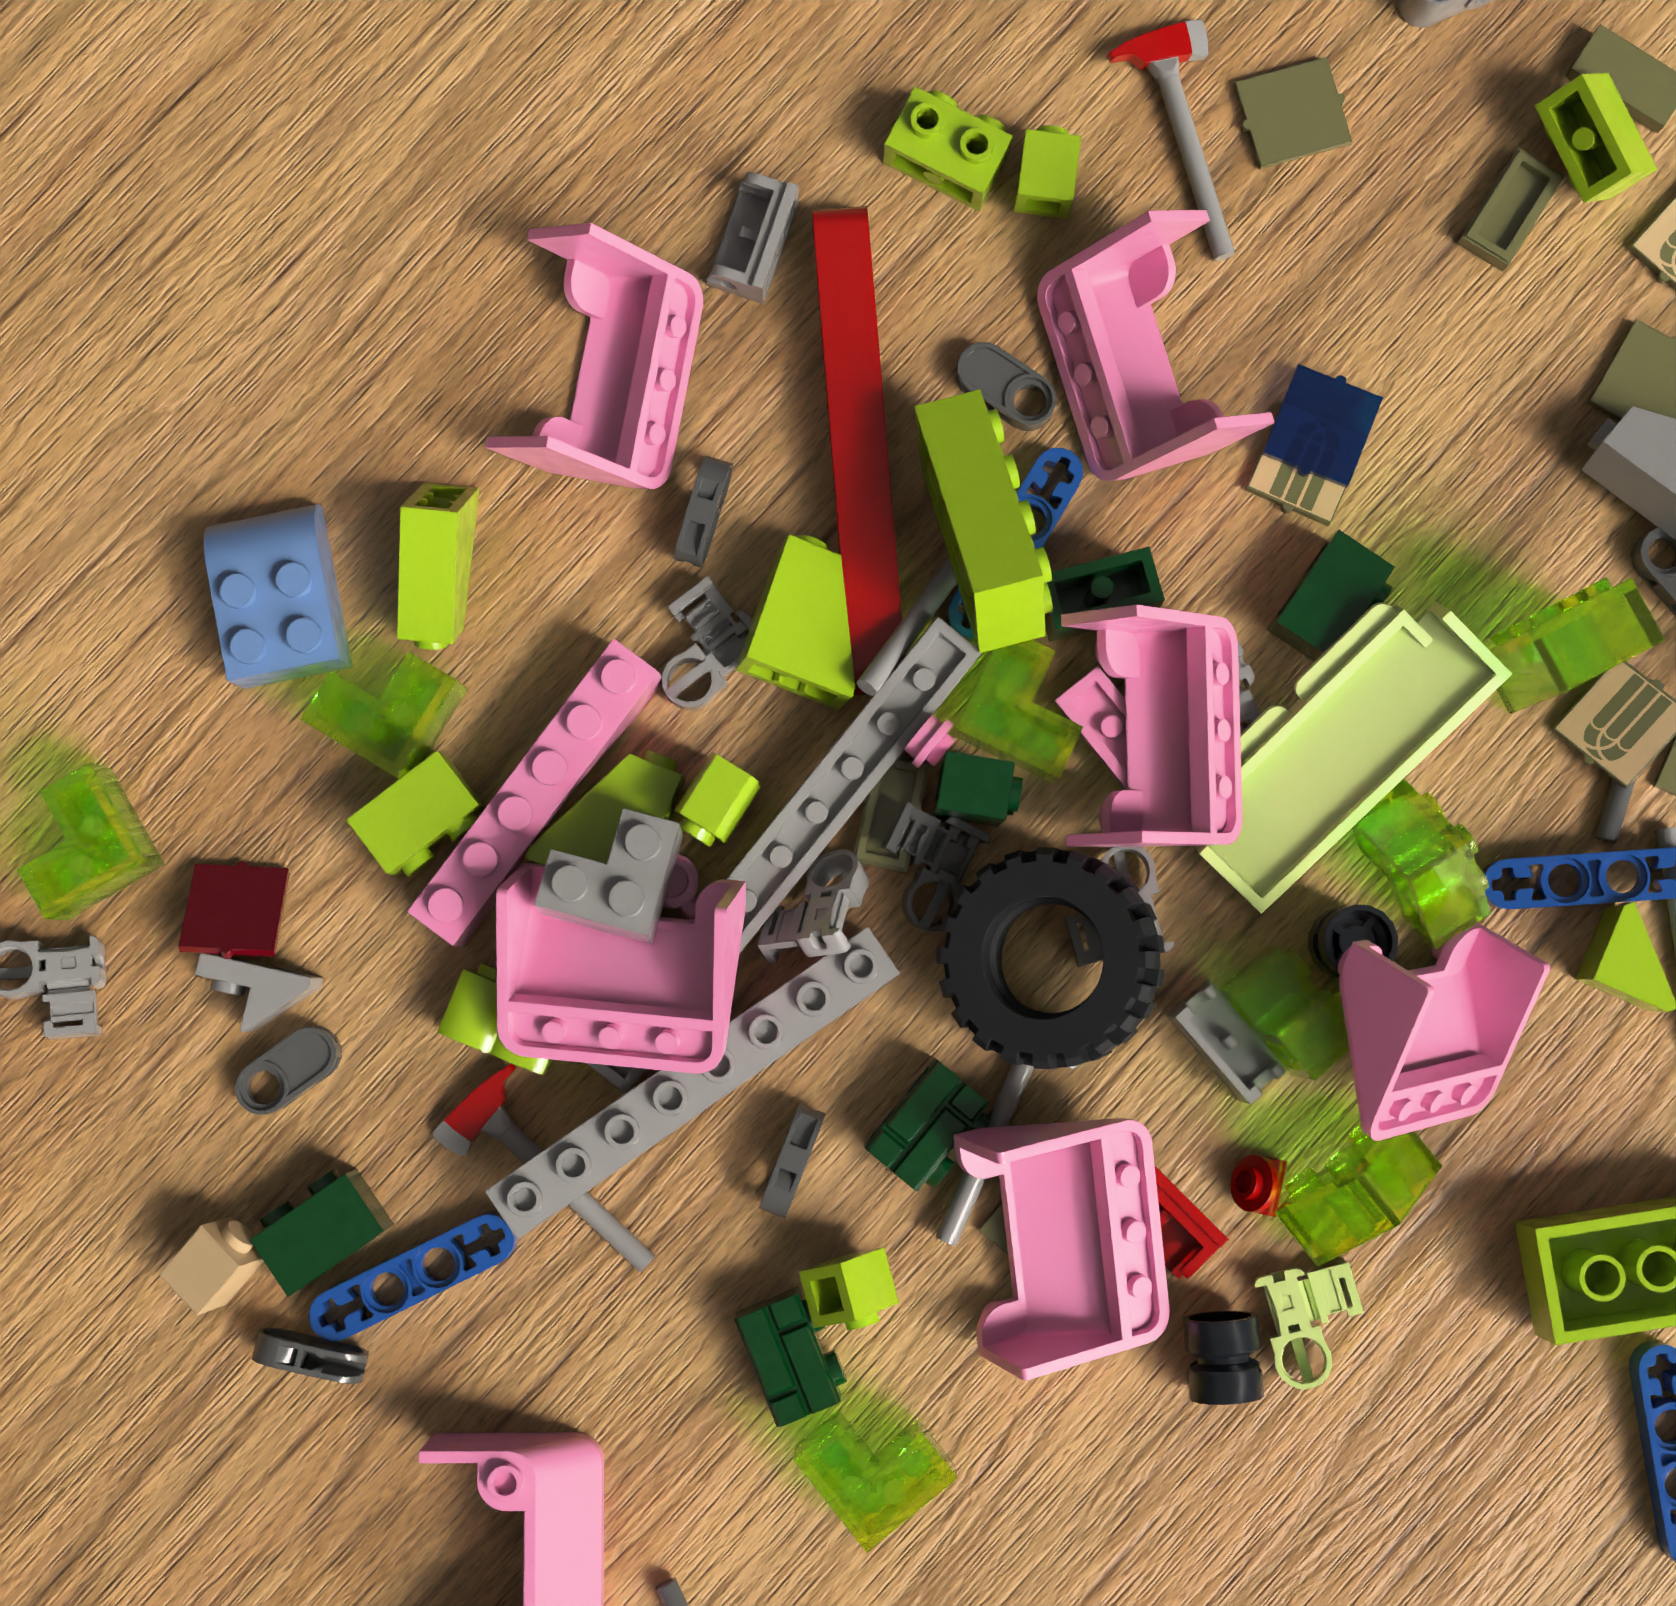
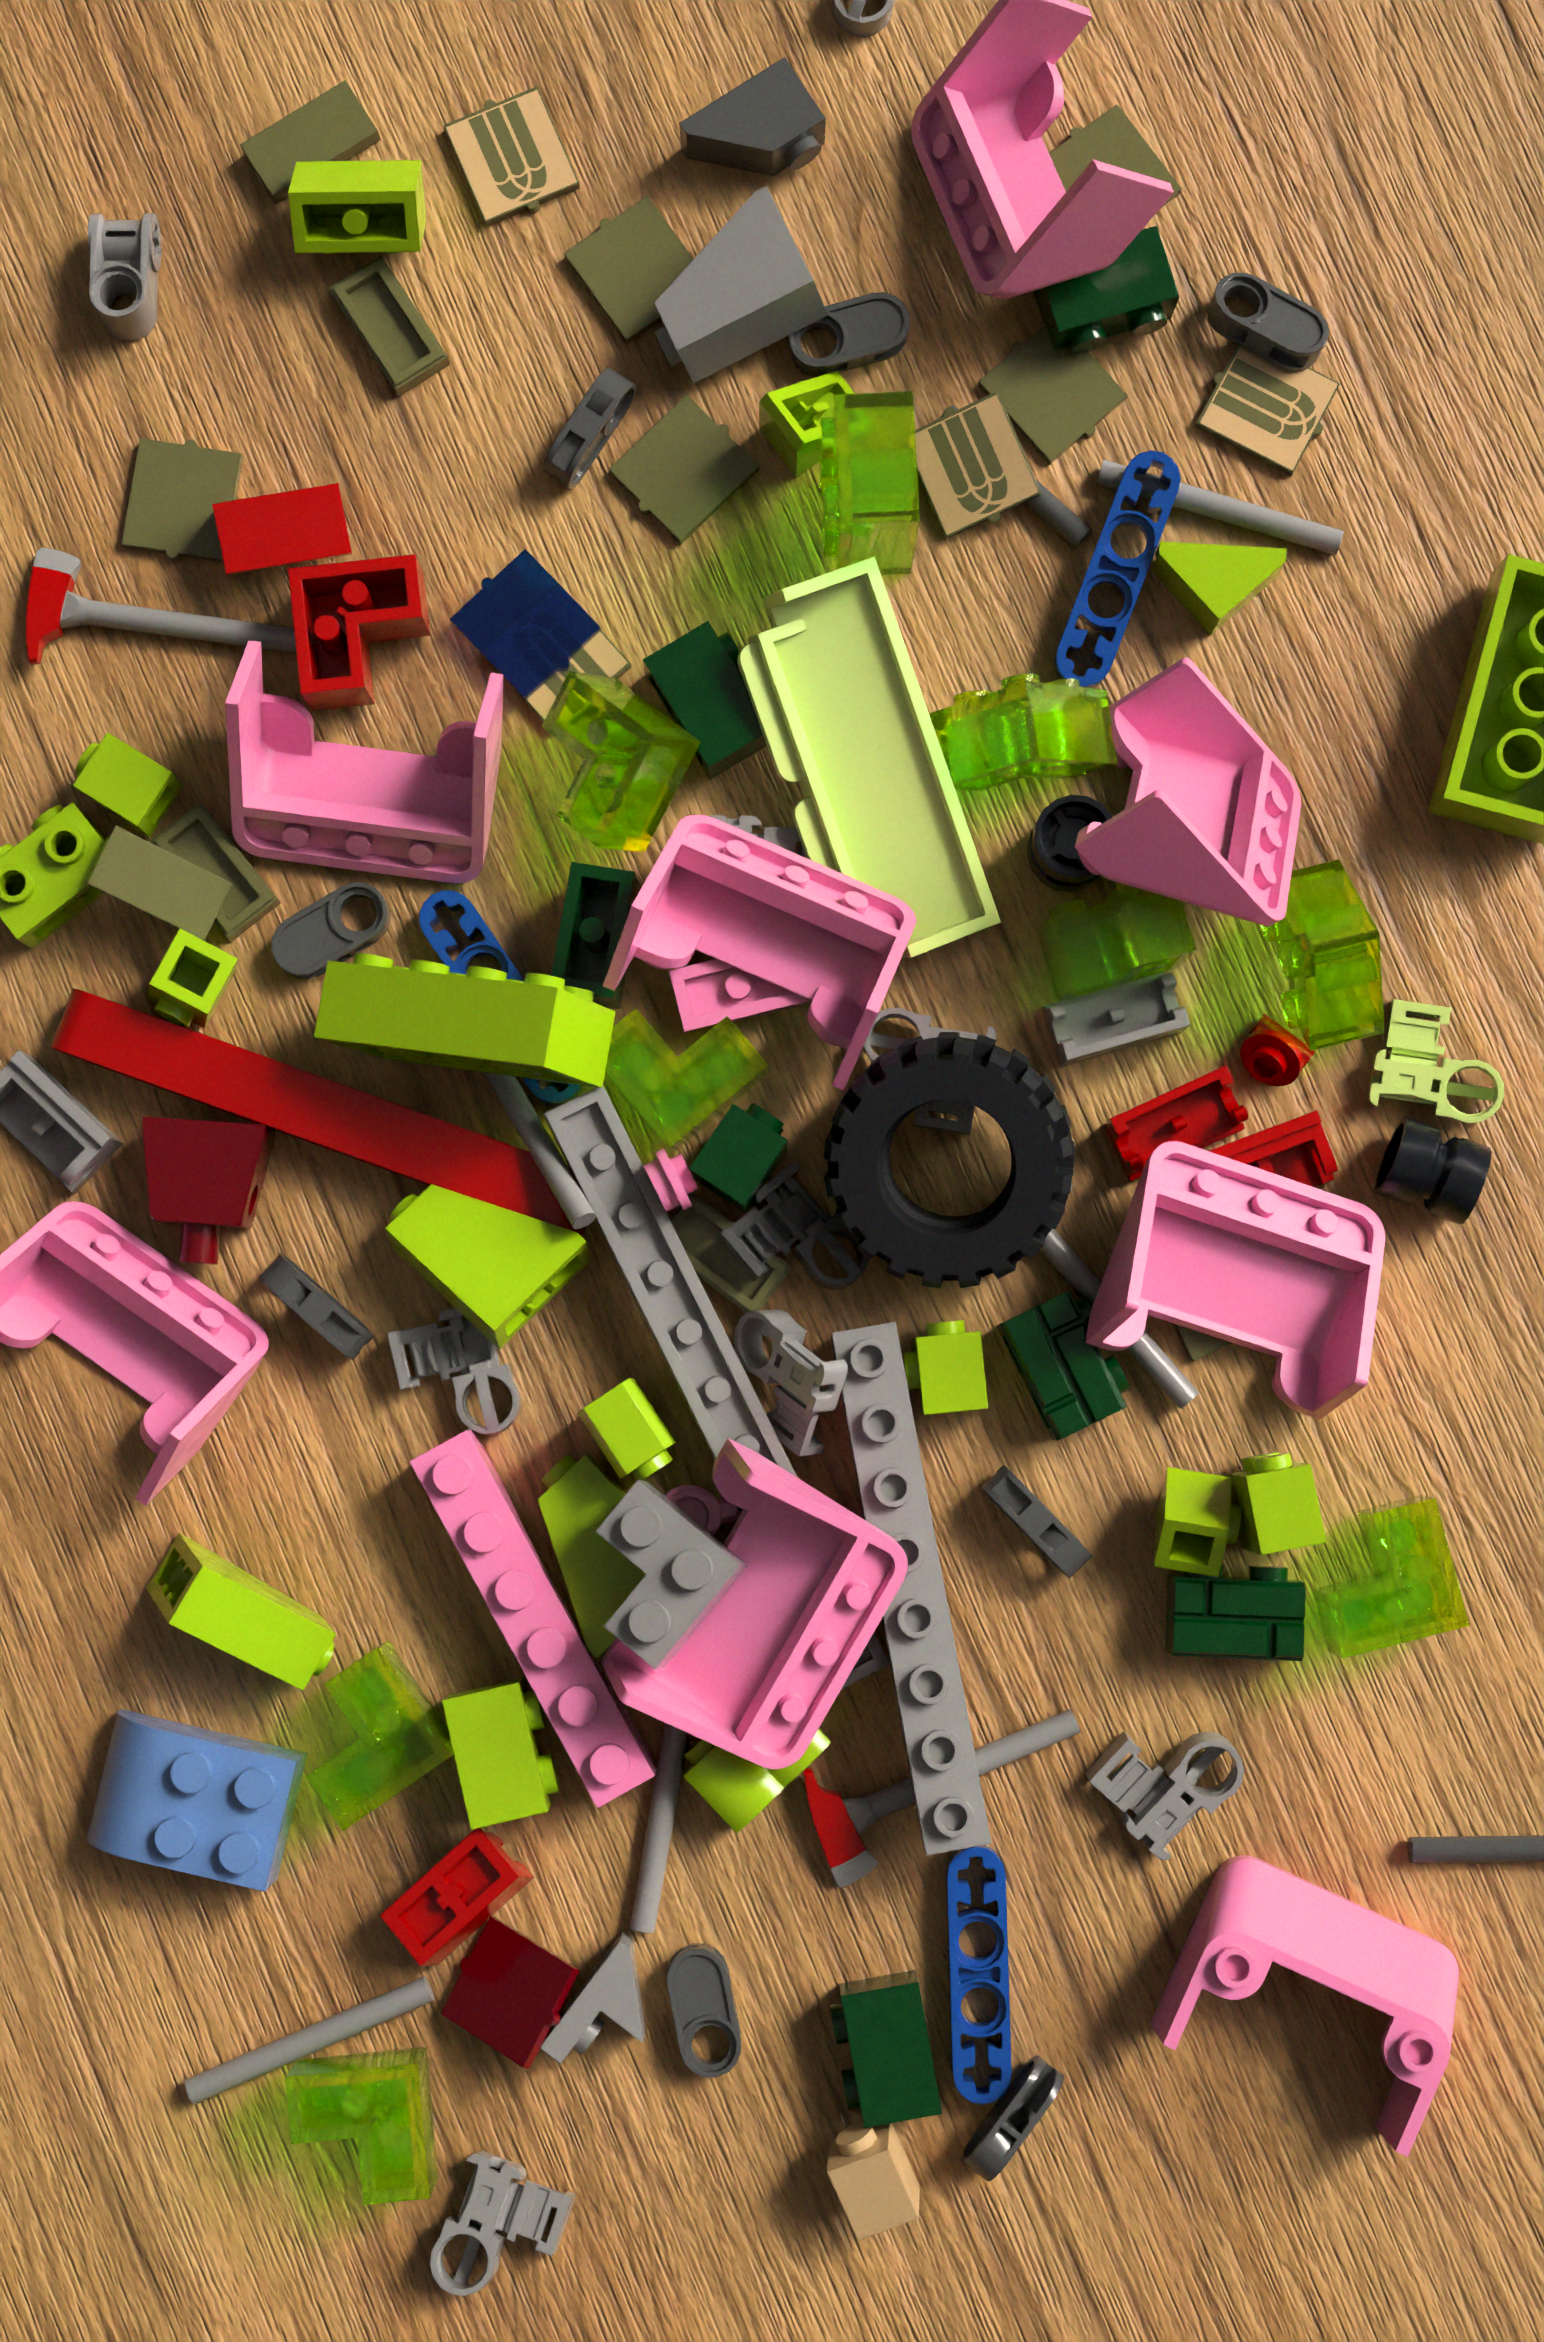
camera: 65 degrees left, 0 degrees up
(130, 771) = (309, 2040): none -> light grey bar
(289, 833) = (455, 1897): none -> red hinge
(412, 970) = (659, 1829): none -> light grey bar
(614, 1358) = (1155, 1798): none -> light grey piece
(764, 378) = (204, 1178): none -> dark red torso
(881, 1033) = (947, 1369): none -> lime brick
(893, 1349) = (1276, 1504): none -> lime brick
(914, 293) = (190, 980): none -> lime brick
(980, 232) = (158, 882): none -> olive tile
(1010, 275) = (204, 843): none -> olive tile
(1178, 1138) = (1190, 1114): none -> red hinge
(1248, 556) = (629, 761): none -> clear neon green brick
(1260, 275) = (344, 609): none -> red brick
(1308, 198) = (282, 528): none -> red hinge
(1505, 403) = (589, 428): none -> dark grey piece
(1507, 494) = (683, 469): none -> olive piece
(1590, 559) = (793, 418): none -> lime slope

